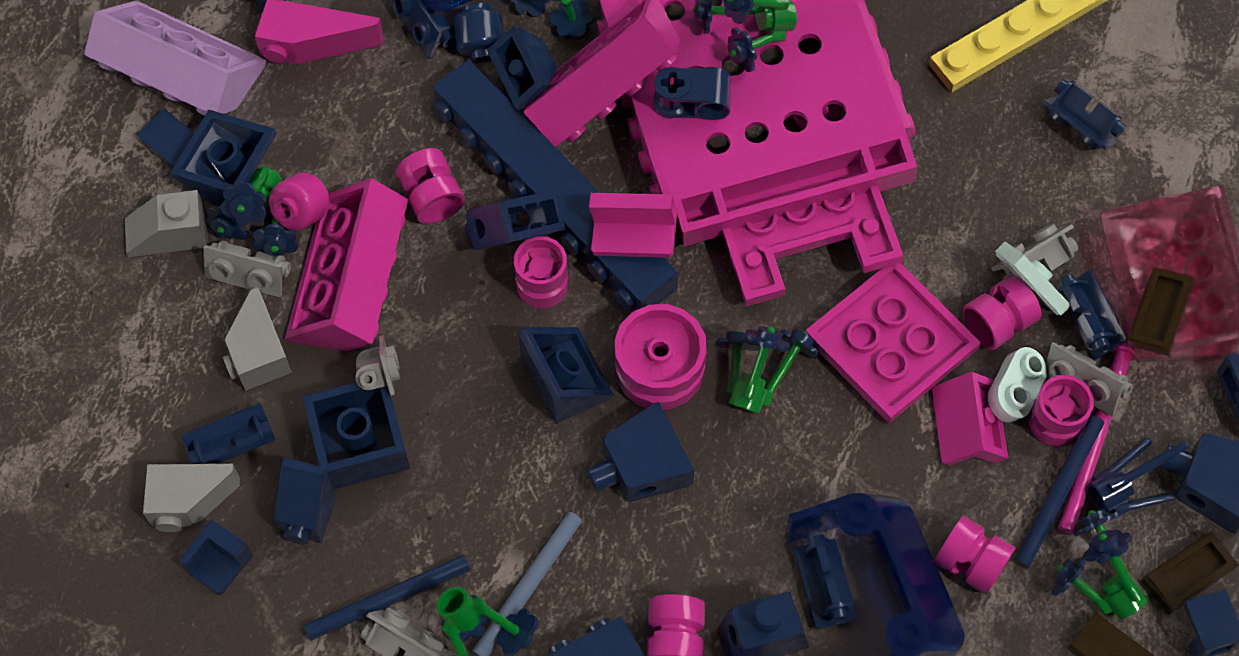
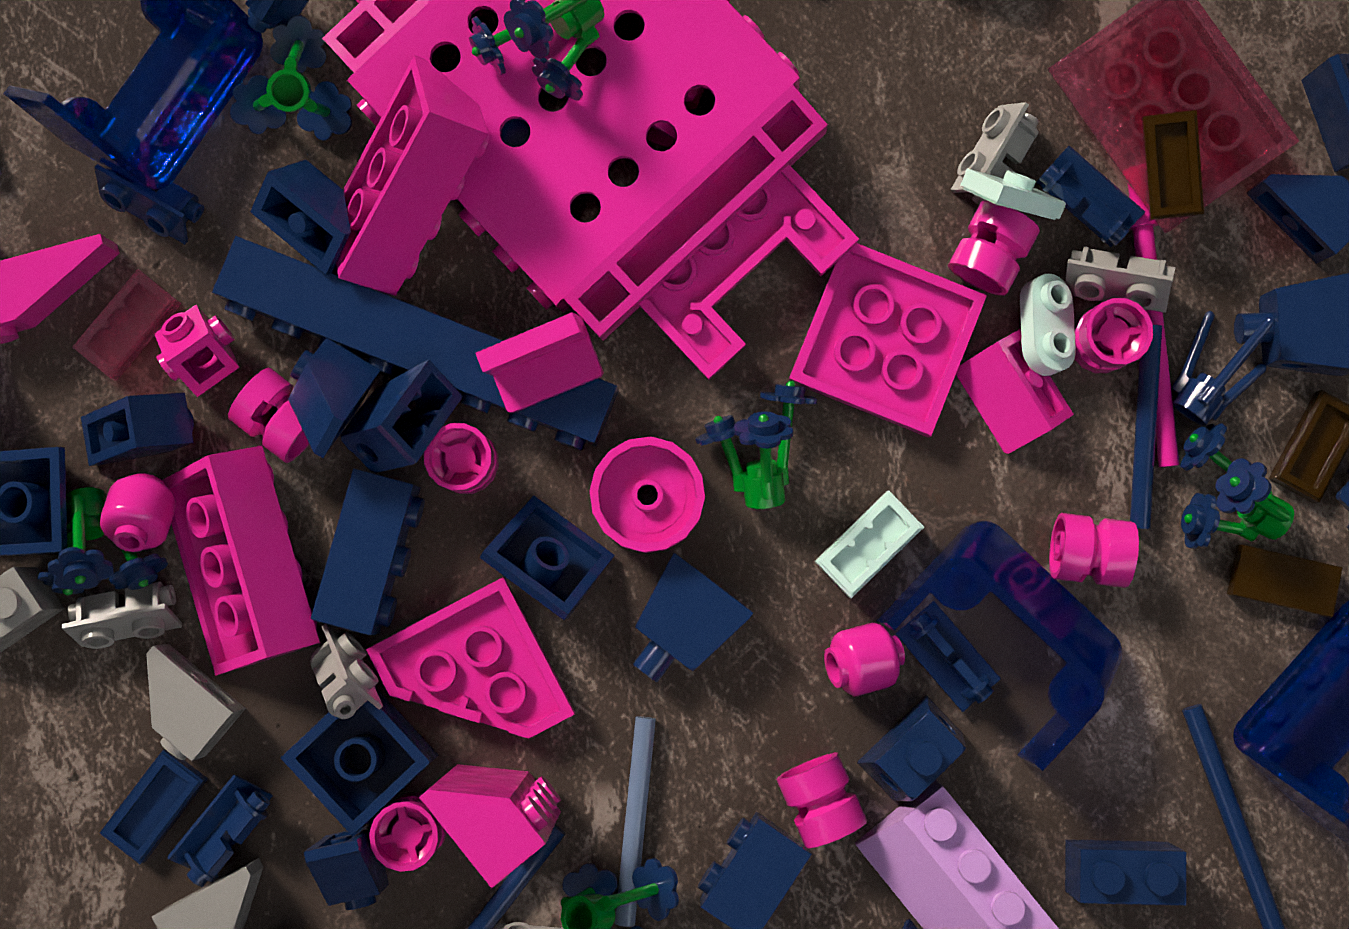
camera: 30 degrees left, 20 degrees up
(189, 403) = (153, 806): none -> dark blue tile
(330, 151) = (137, 428): none -> dark blue slope
(353, 494) = (405, 834): none -> dark pink wheel
(361, 86) = (126, 325): none -> clear pink plate
(395, 131) = (196, 349): none -> dark pink brick
(437, 498) = (494, 815): none -> dark pink slope
(439, 304) = (368, 553): none -> dark blue brick
(472, 417) = (476, 664): none -> dark pink plate
(476, 181) = (329, 392): none -> dark blue slope
(477, 30) = (225, 186): dark blue head -> none
(695, 93) = (534, 159): dark blue piece -> none
(760, 550) = (864, 659): none -> dark pink head
(806, 473) = (869, 544): none -> light aqua plate

